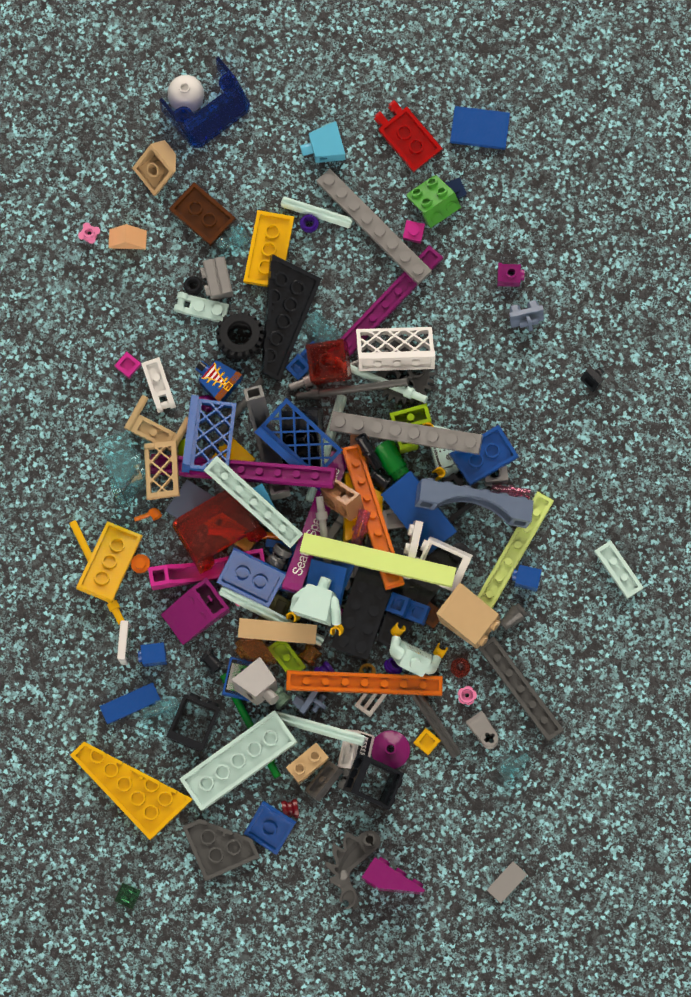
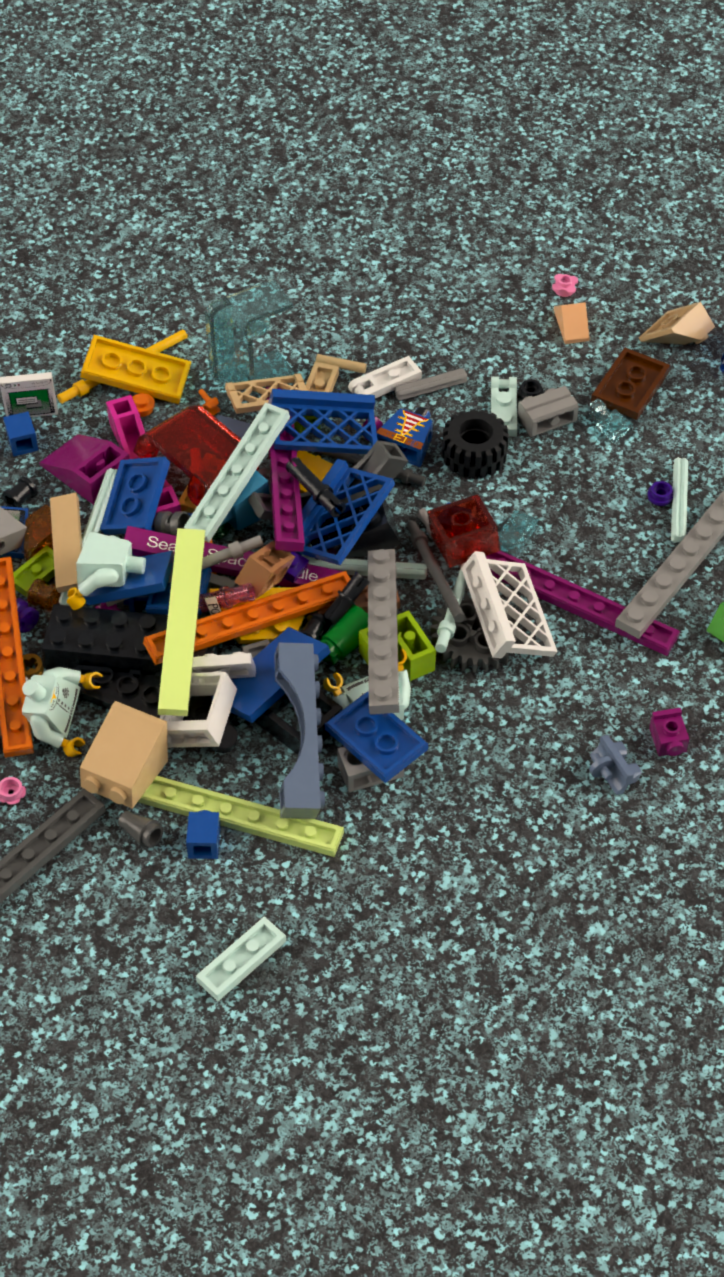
camera: 75 degrees right, 25 degrees down
(128, 365) = (402, 346): dark pink plate -> none
(168, 353) = (430, 384): none -> light grey axle
(270, 236) = (607, 457): yellow plate -> none
(280, 451) = (321, 492): none -> black pin
(287, 305) = (533, 483): black wing -> none
(408, 609) = (127, 685): blue slope -> none
(413, 231) = (693, 612): dark pink plate -> none
(456, 672) = (52, 782): clear red plate -> none
(511, 490) = (333, 793): clear pink pin -> none
(592, 378) = (543, 869): black tile -> none

